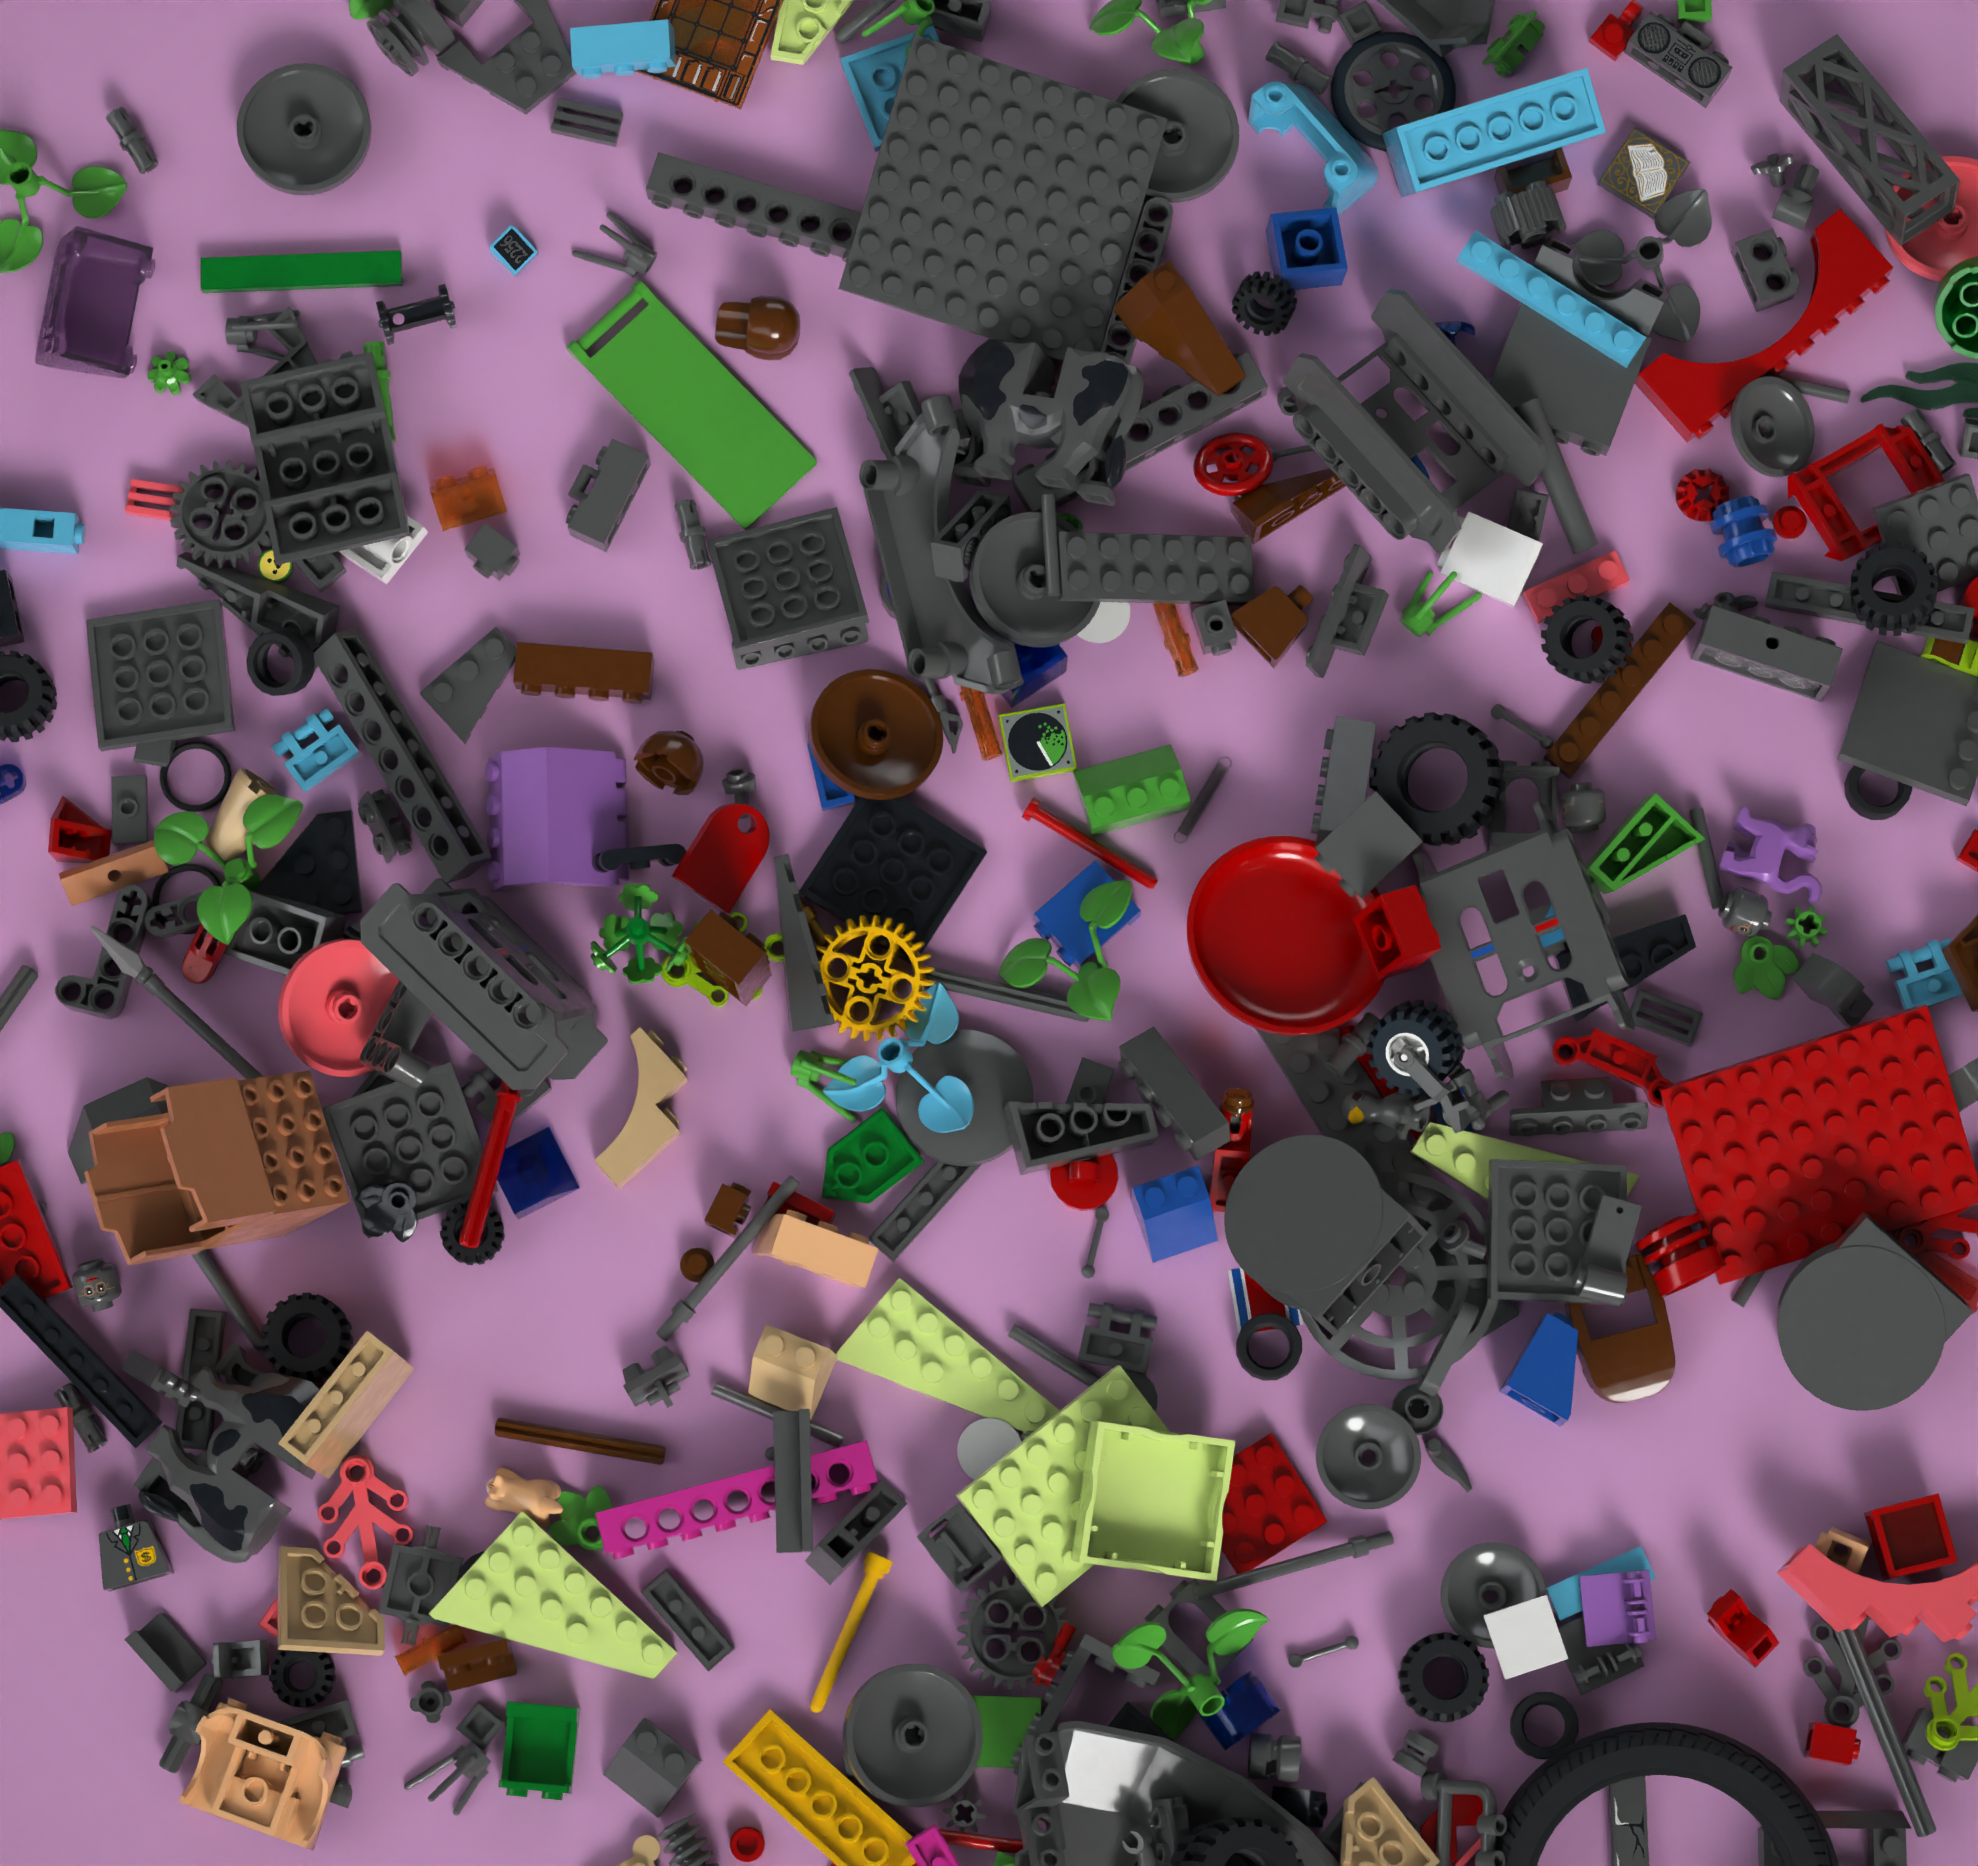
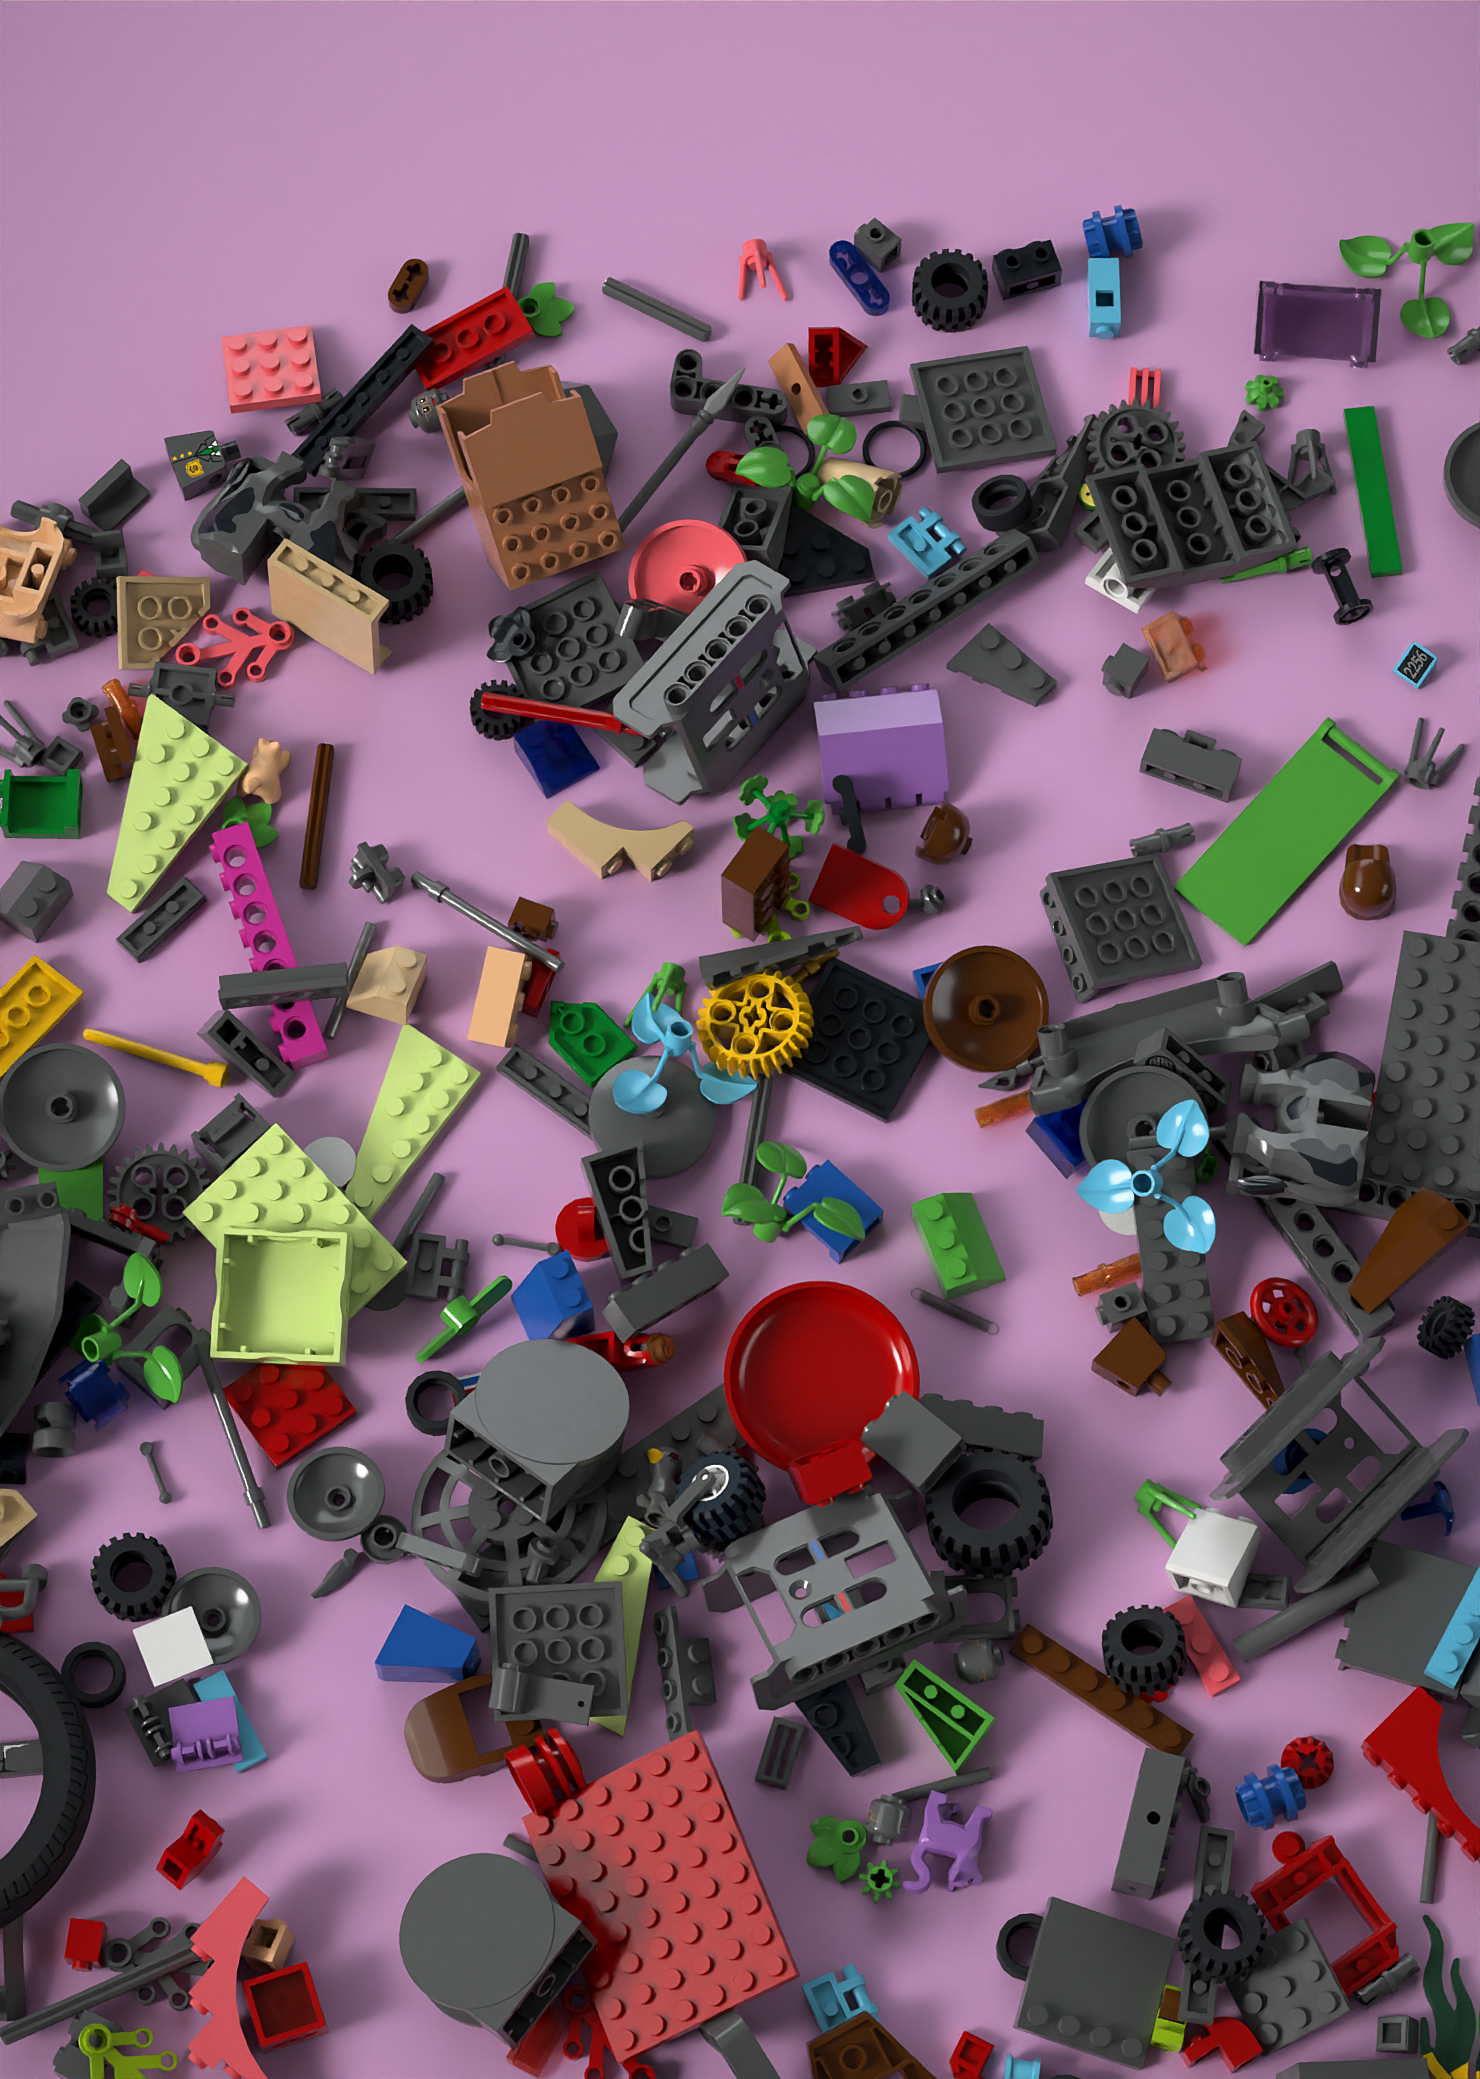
camera: 85 degrees right, 10 degrees down
(584, 672) = (1021, 757): reddish brown brick -> none
(696, 1264) = (482, 898): reddish brown plate -> none
(1037, 742) = (995, 1158): tile -> none
(1087, 843) = (929, 1158): red bar -> none
(1147, 545) = (1112, 1185): none -> medium azure plant
(1177, 1316) = (463, 1315): none -> bright green piece
(1350, 615) = (1148, 1430): dark grey bracket -> none
(1411, 1760) = (63, 1558): dark grey wheel -> none
(1498, 712) = (1067, 1580): dark grey hinge -> none
(1614, 1058) = (736, 1703): red plate -> none
(1772, 426) = (1385, 1839): dark grey dish -> none
(1835, 988) = (817, 1910): dark grey brick -> none

